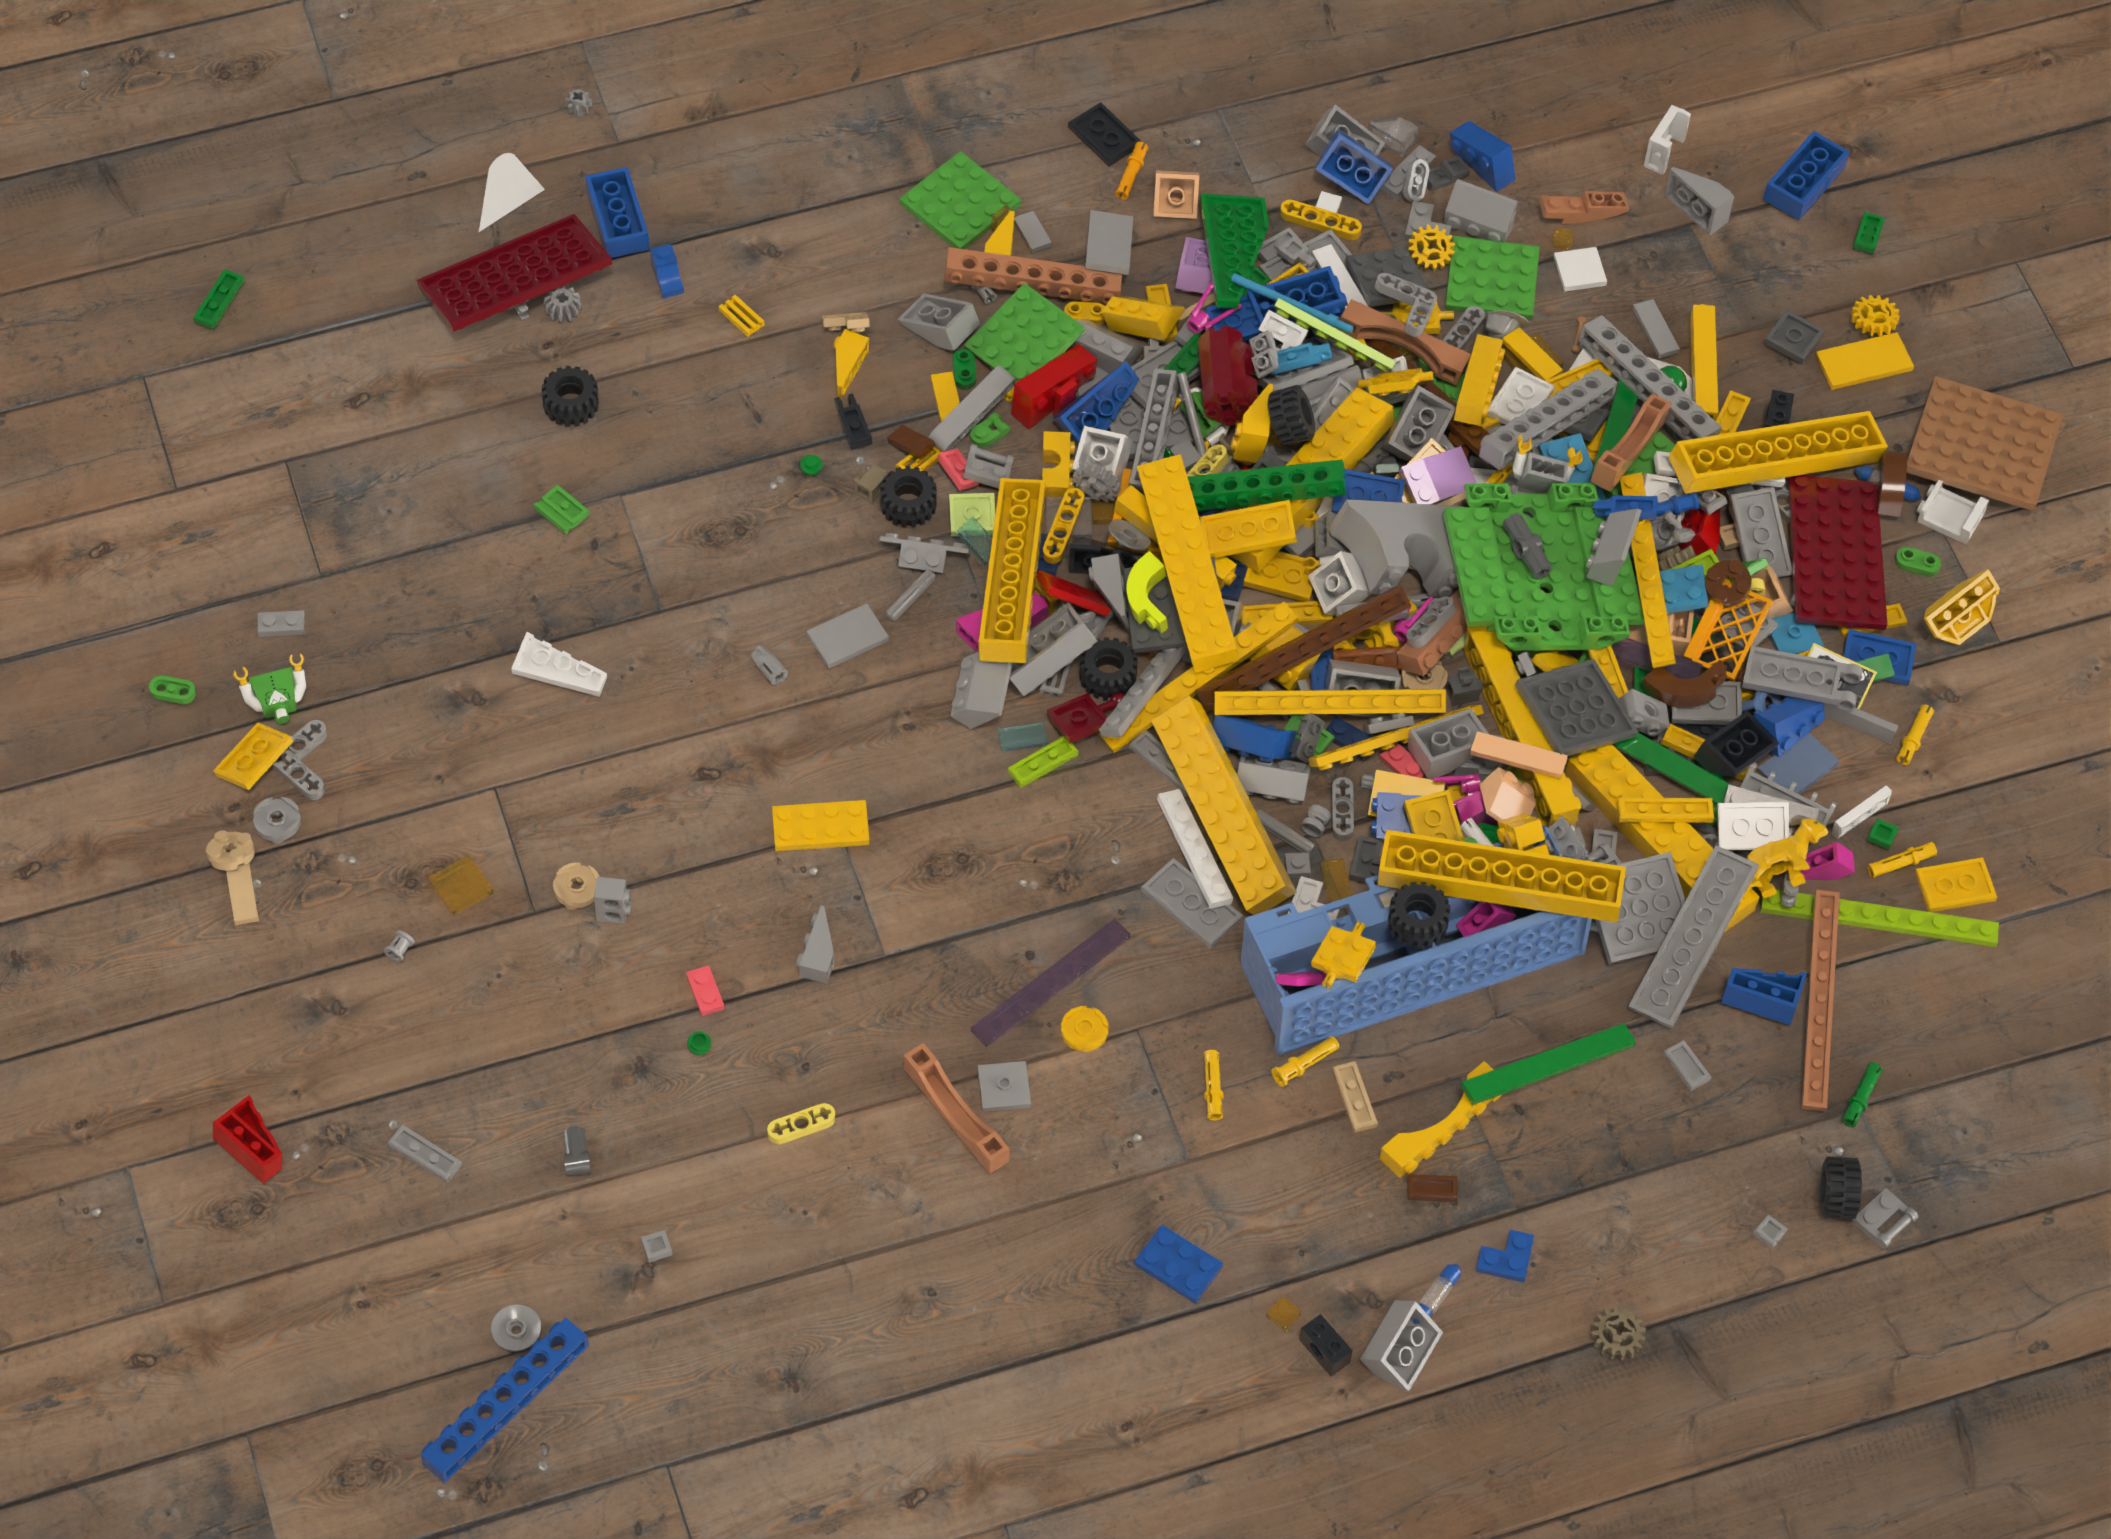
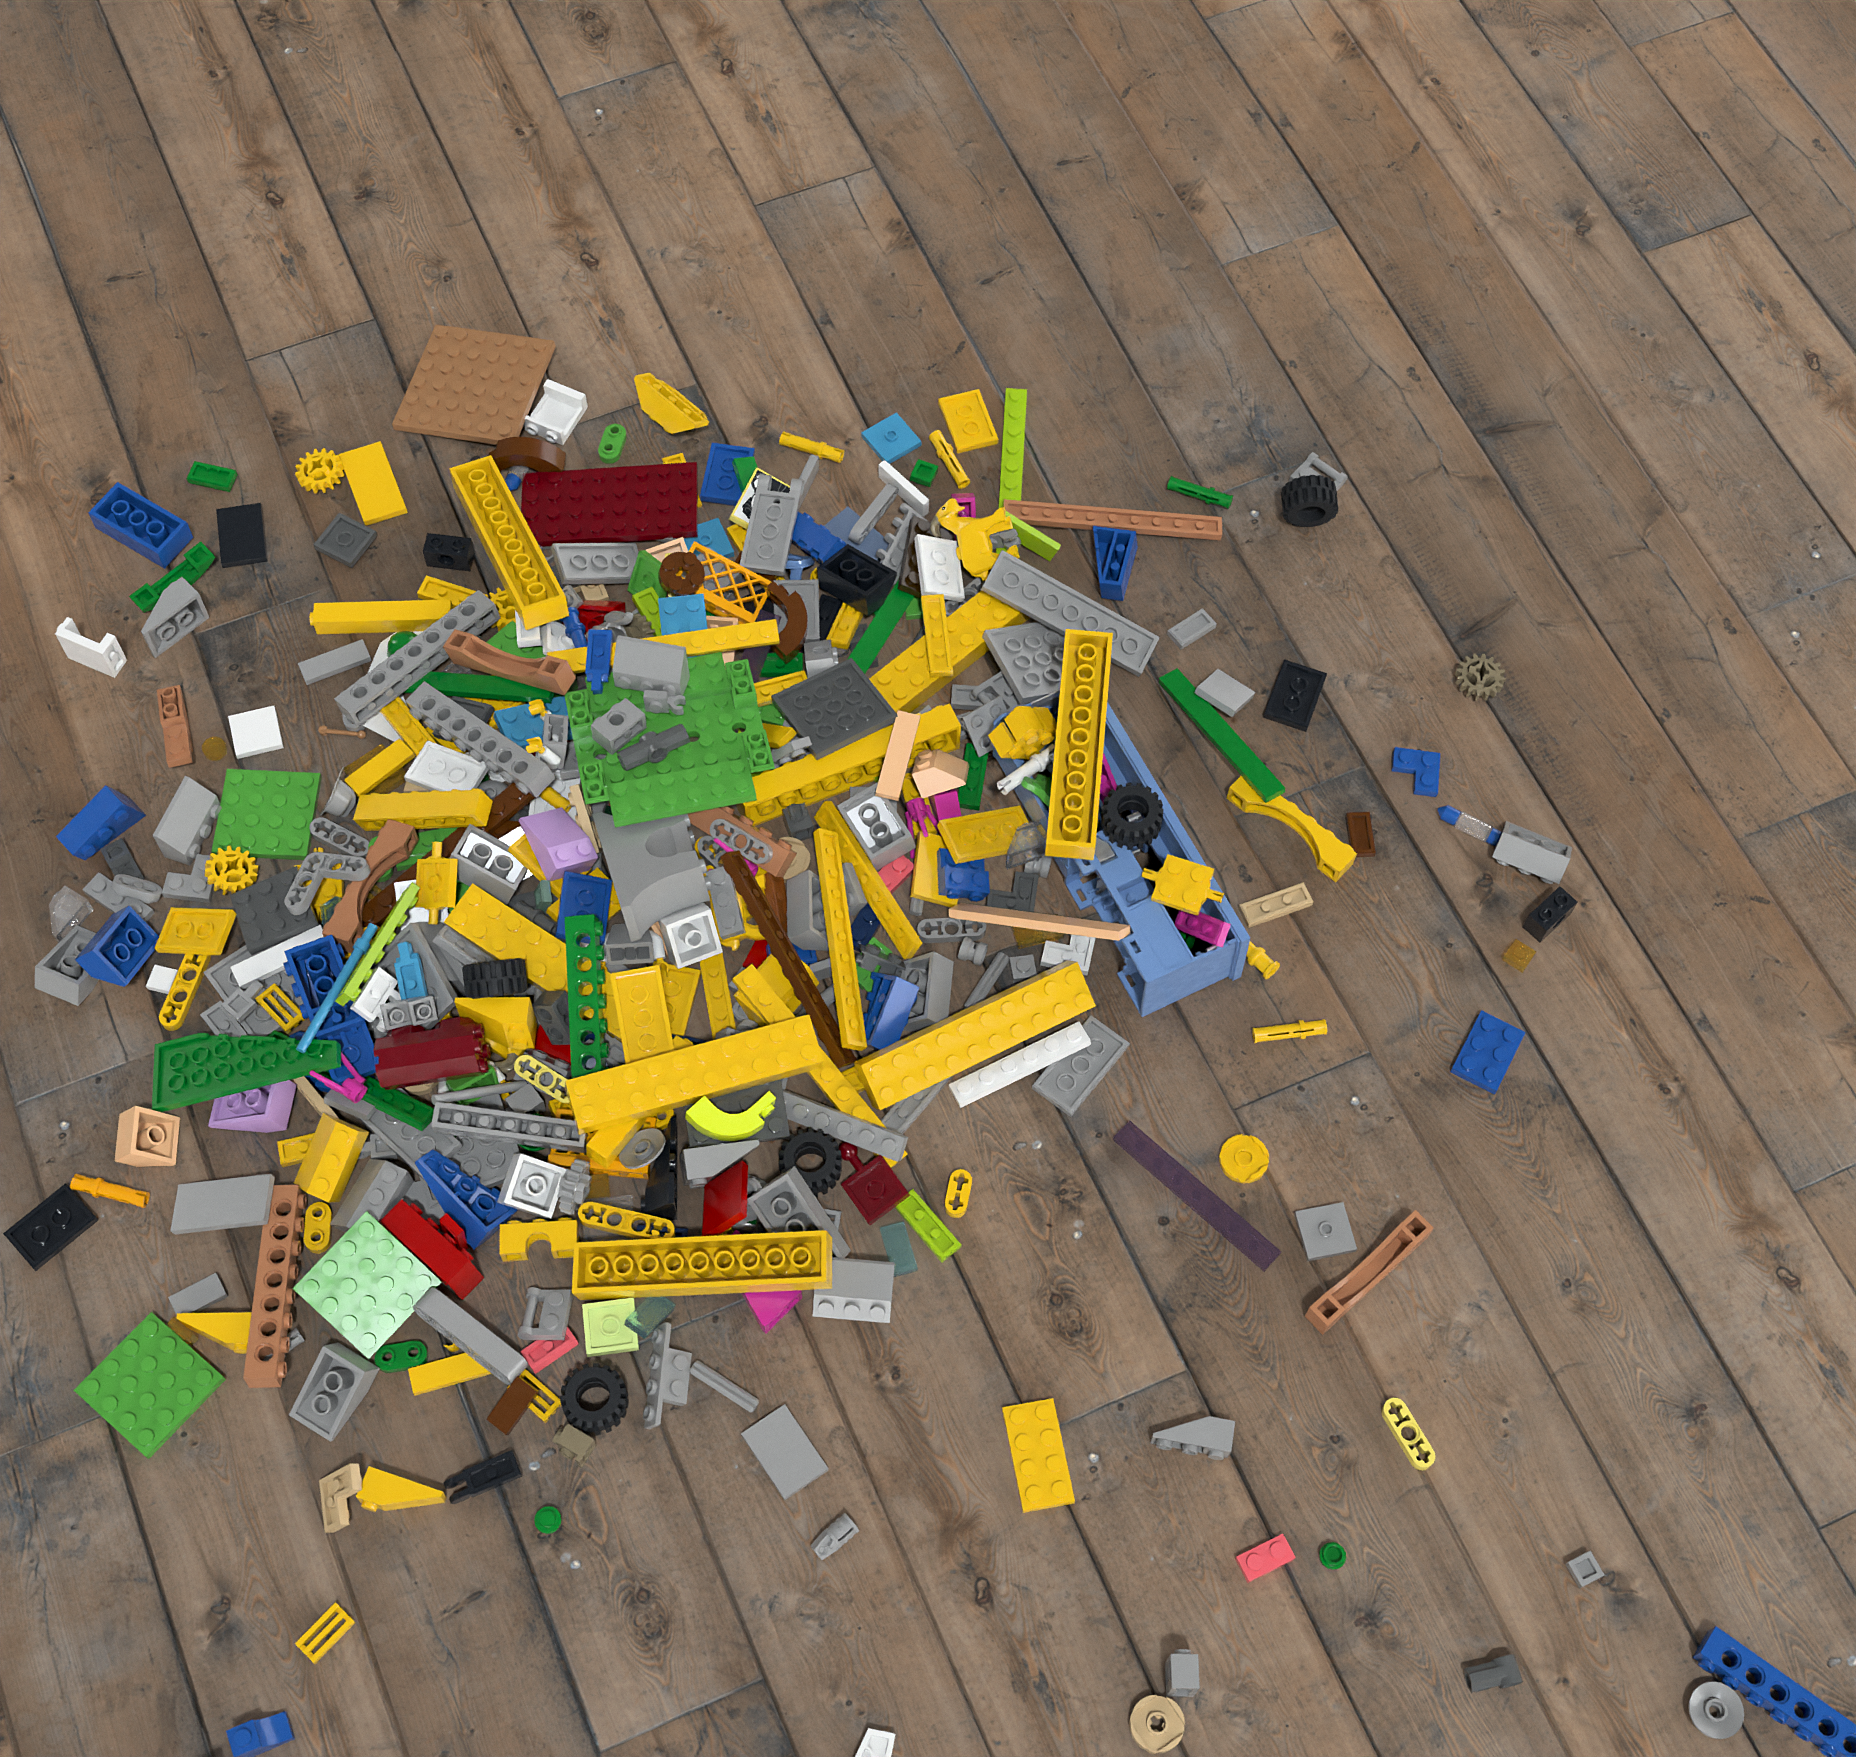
camera: 95 degrees left, 5 degrees up
(984, 436) = (496, 1323): bright green plate -> none
(1071, 788) = (963, 1194): none -> yellow beam
(1329, 857) = (1040, 921): none -> light nougat tile
(1371, 222) = (195, 931): none -> yellow tile
(1541, 518) = (618, 726): none -> light grey brick
(1579, 555) = (661, 702): none -> light grey plate
(1602, 1079) = (1224, 692): none -> light grey tile
(1602, 1152) = (1295, 695): none -> black tile
(1748, 207) = (196, 563): none -> green slope
(1770, 1231) = (1348, 564): light grey tile -> none
(1796, 913) = (1034, 539): none -> lime tile
(1801, 257) = (241, 535): none -> black tile
(1824, 777) = (873, 513): none -> light grey beam
(1929, 810) = (891, 438): none -> dark azure plate

